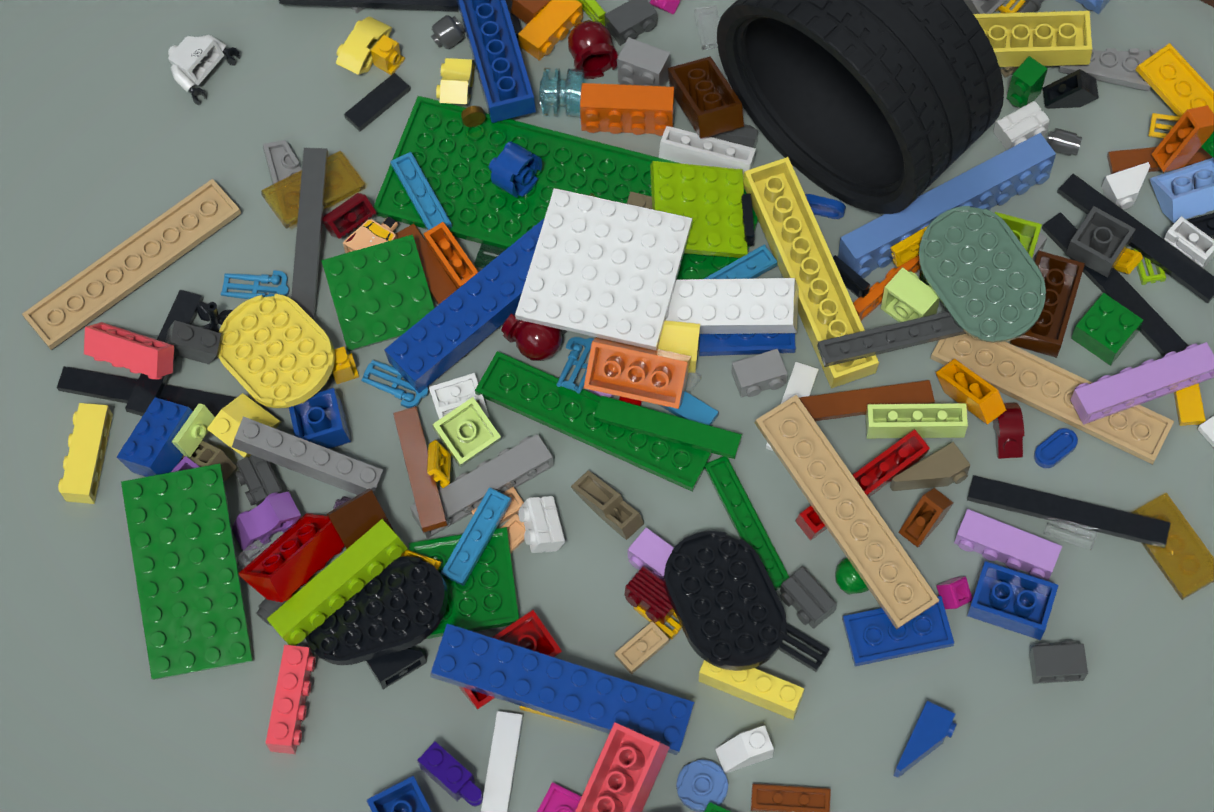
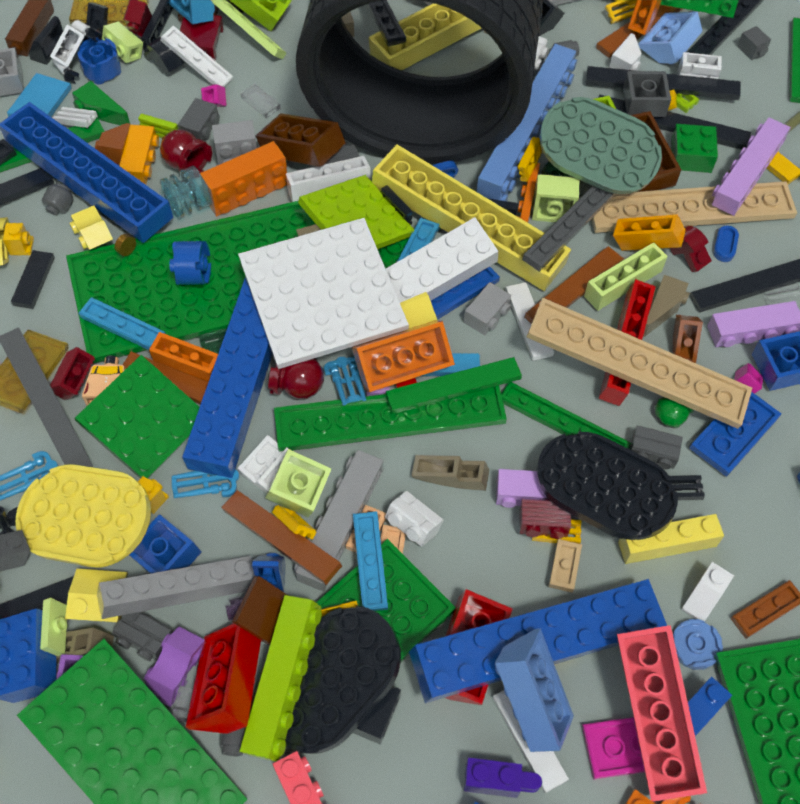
camera: 40 degrees left, 5 degrees down
(390, 492) = (271, 569): none -> blue slope
(520, 724) = (535, 692): none -> medium blue slope

